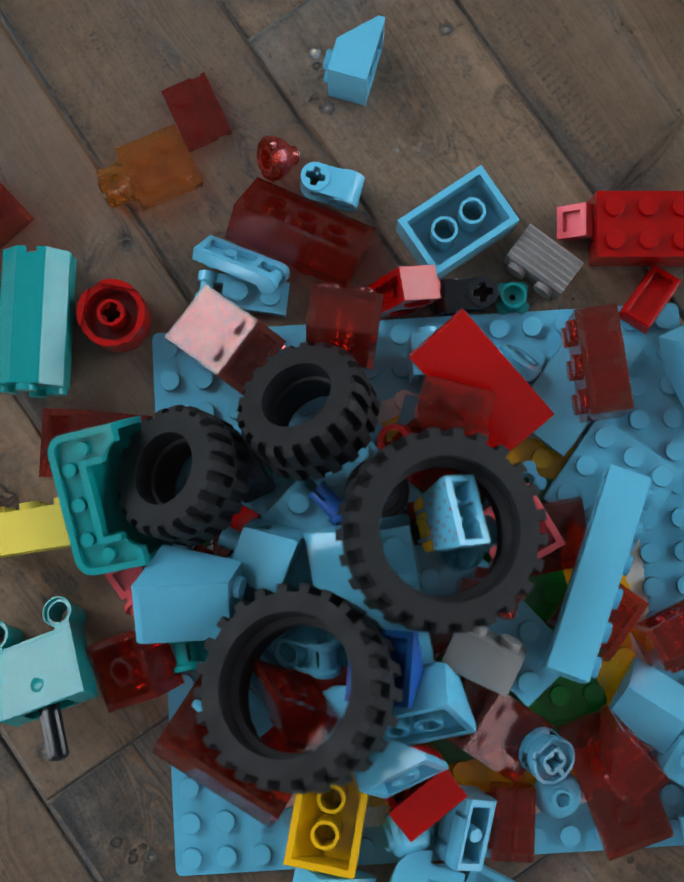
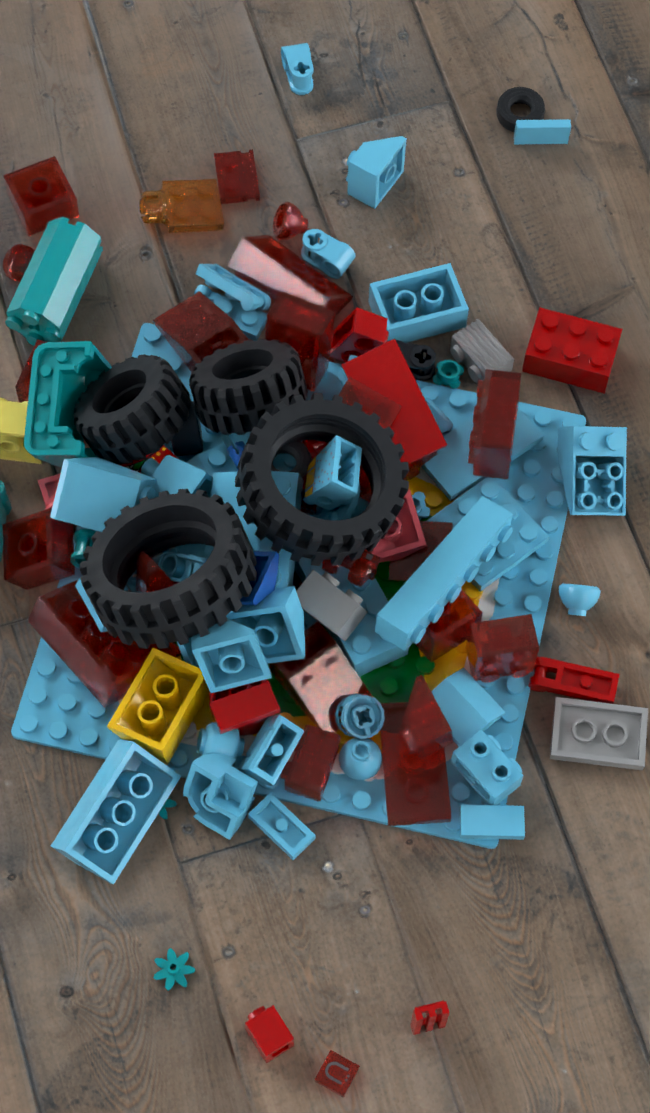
camera: 15 degrees right, 20 degrees down
(105, 300) = (117, 296): red brick -> none
(575, 221) = (517, 331): coral plate -> none
(649, 298) = (562, 404): red tile -> none

